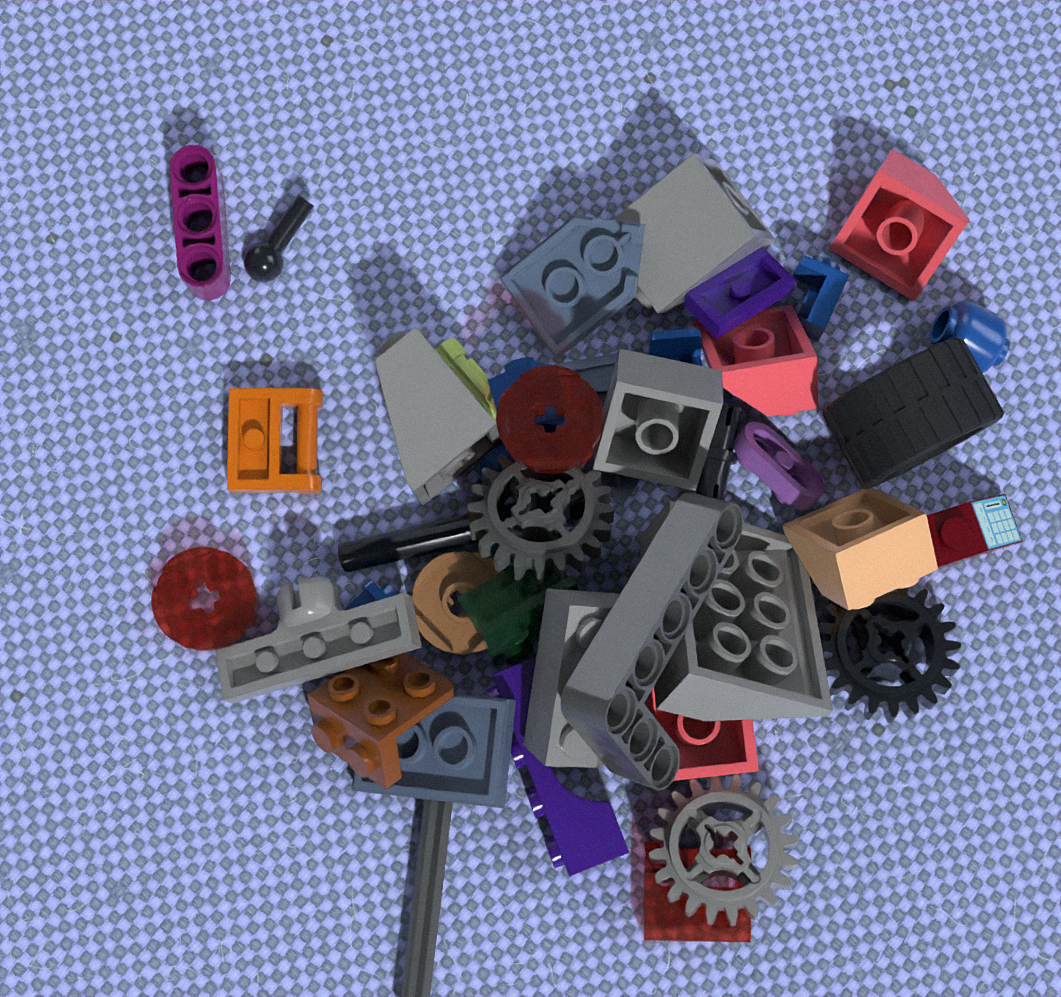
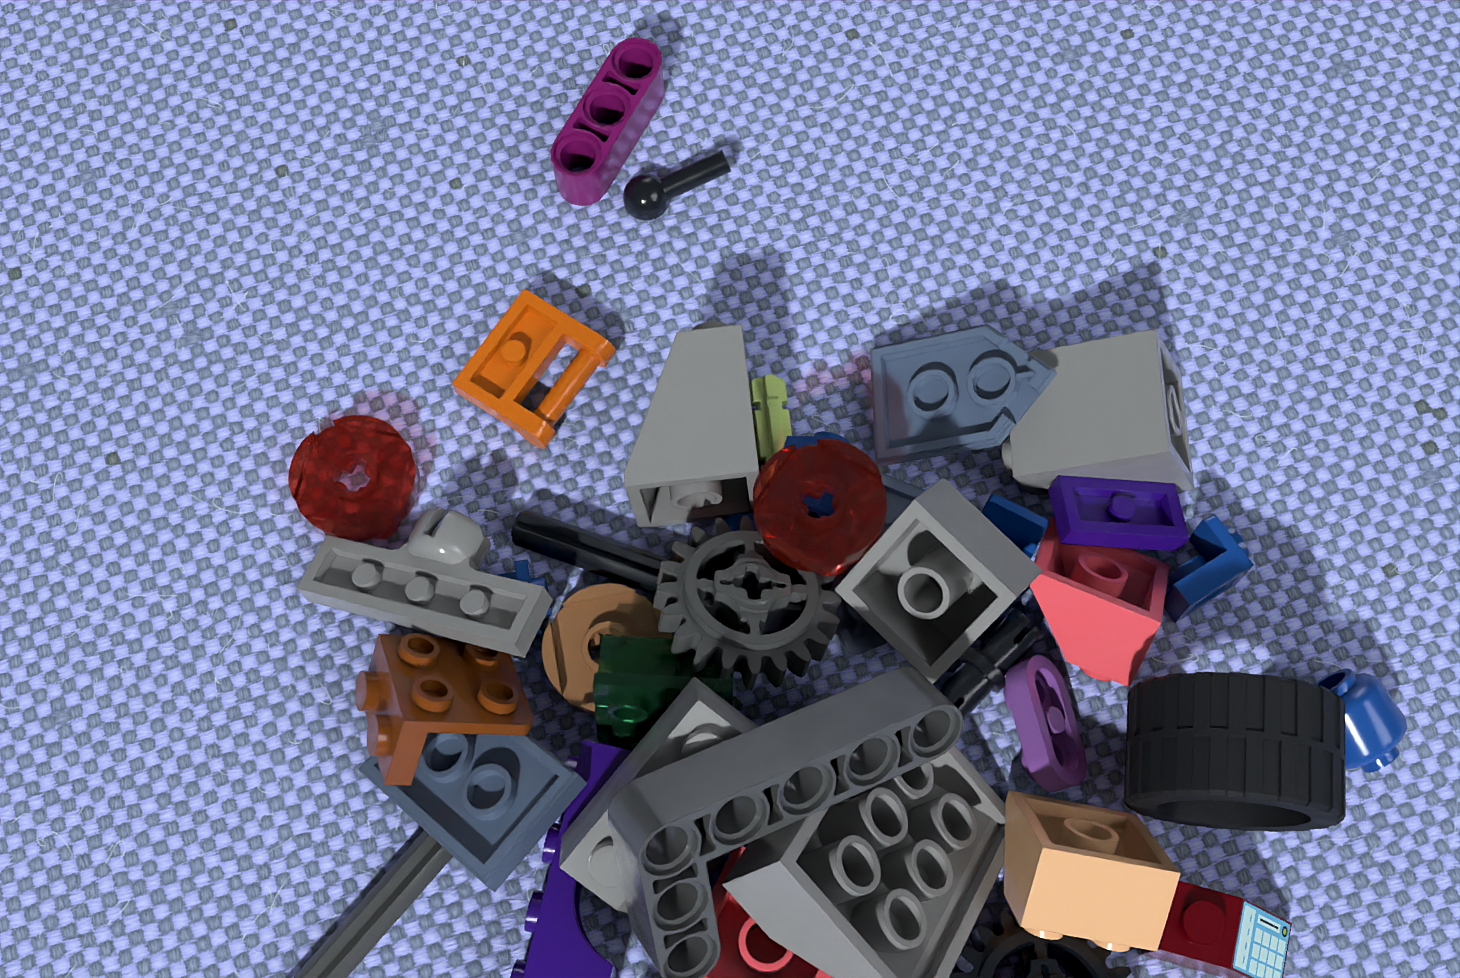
camera: 40 degrees right, 10 degrees down
(901, 226) = (1345, 552): coral slope -> none

